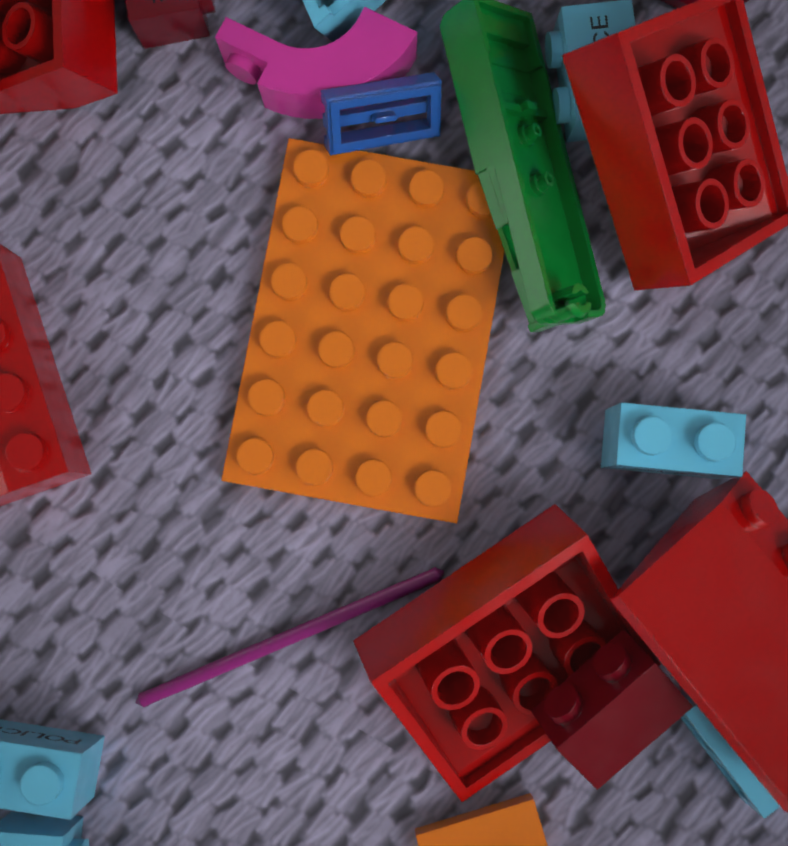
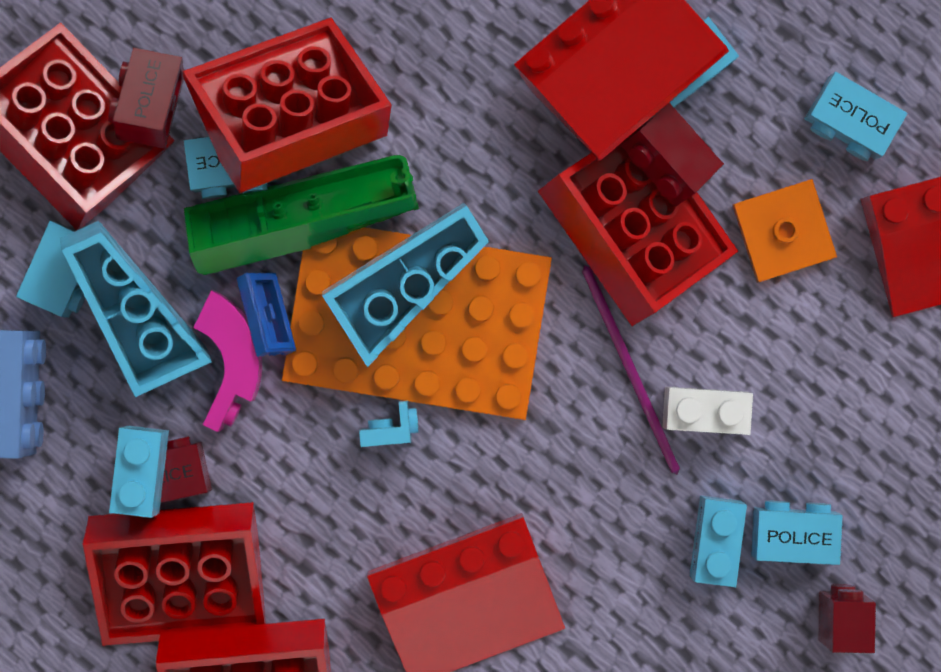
camera: 90 degrees left, 5 degrees up
(207, 276) = (384, 433): none -> medium azure bracket
(222, 756) = (707, 410): none -> white brick
(418, 285) = (395, 286): none -> medium azure wedge
(673, 441) = (494, 111): medium azure brick -> none

